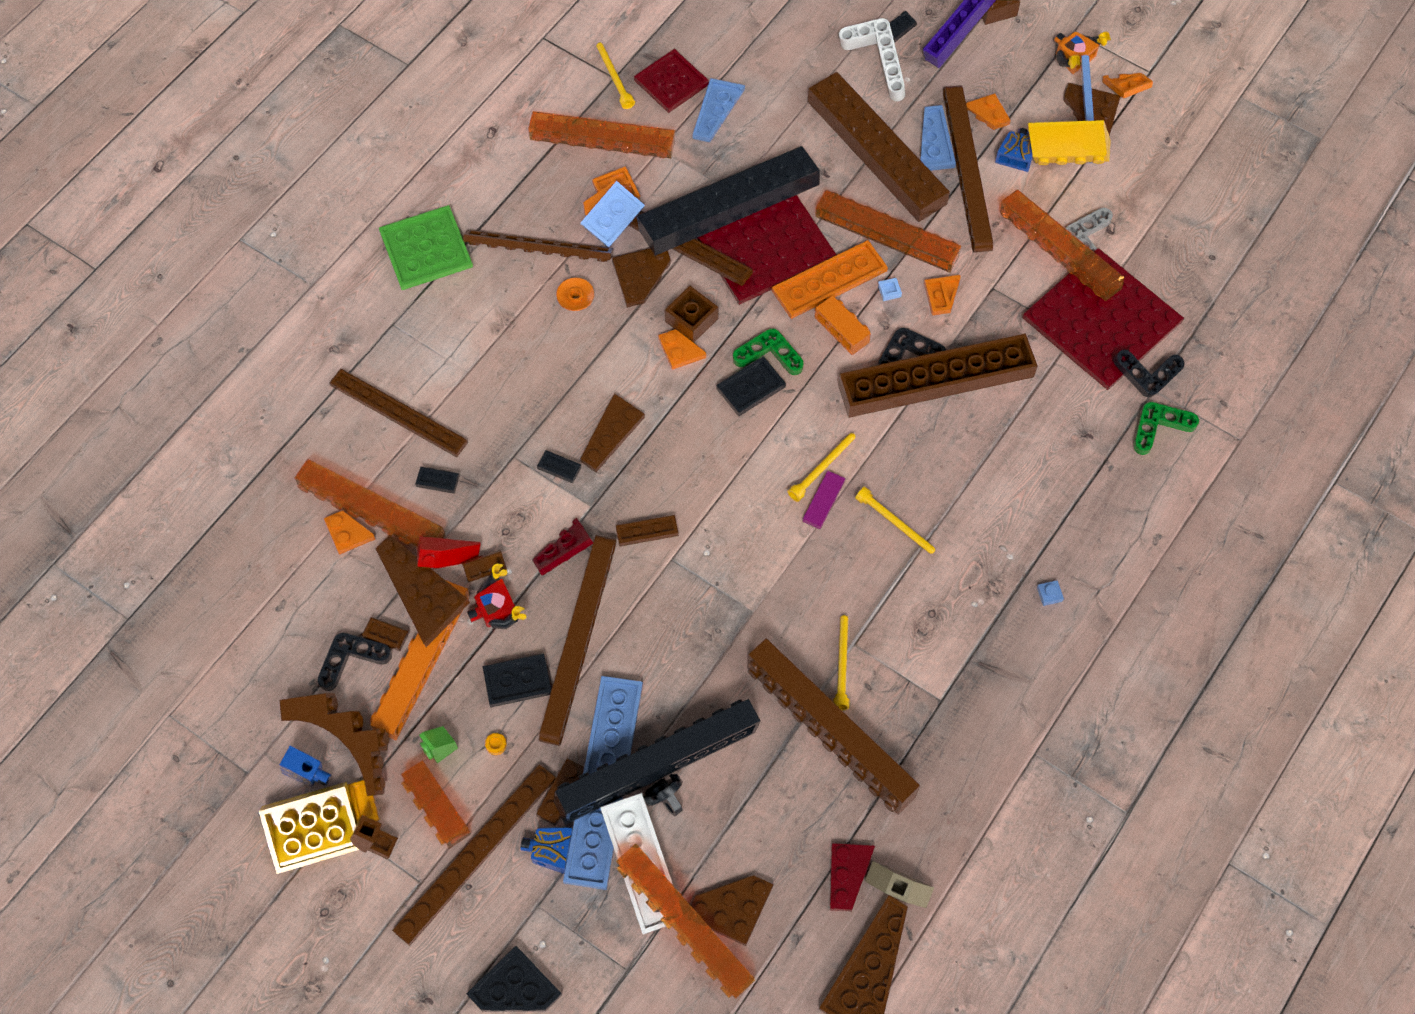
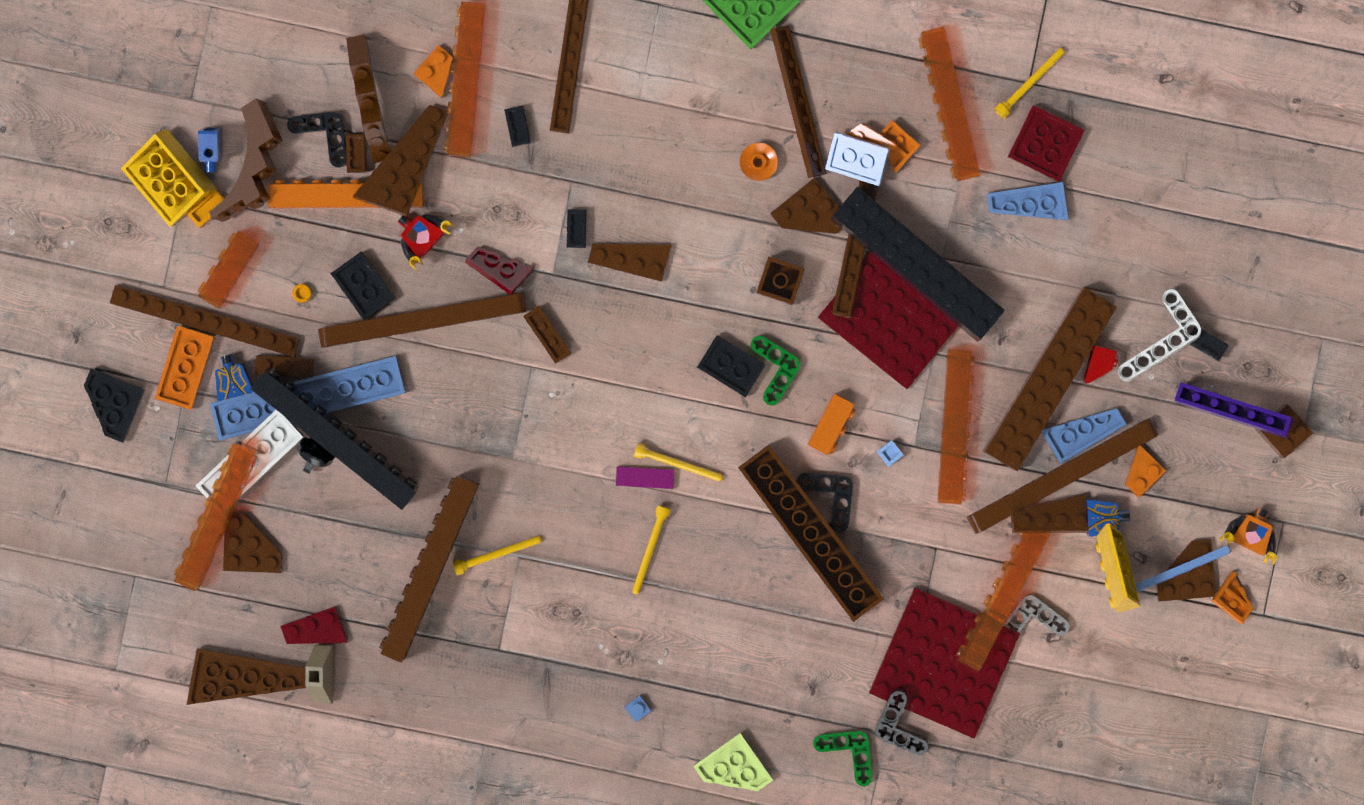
camera: 65 degrees right, 25 degrees up
(358, 594) = (367, 97): none -> reddish brown arch
(370, 838) = (178, 234): reddish brown brick -> none
(437, 744) = (277, 247): bright green slope -> none
(445, 552) = (444, 168): red slope -> none
(482, 565) = (453, 208): reddish brown plate -> none
(514, 893) = (184, 367): none -> orange plate
(679, 349) = (743, 283): orange wing -> none
(829, 278) = (877, 392): orange plate -> none
(881, 104) = (1099, 363): none -> red slope
(941, 293) = (906, 504): orange wing -> none
(1002, 182) = (1055, 517): none -> reddish brown wing
(1139, 527) = (734, 766): none -> yellowish green plate

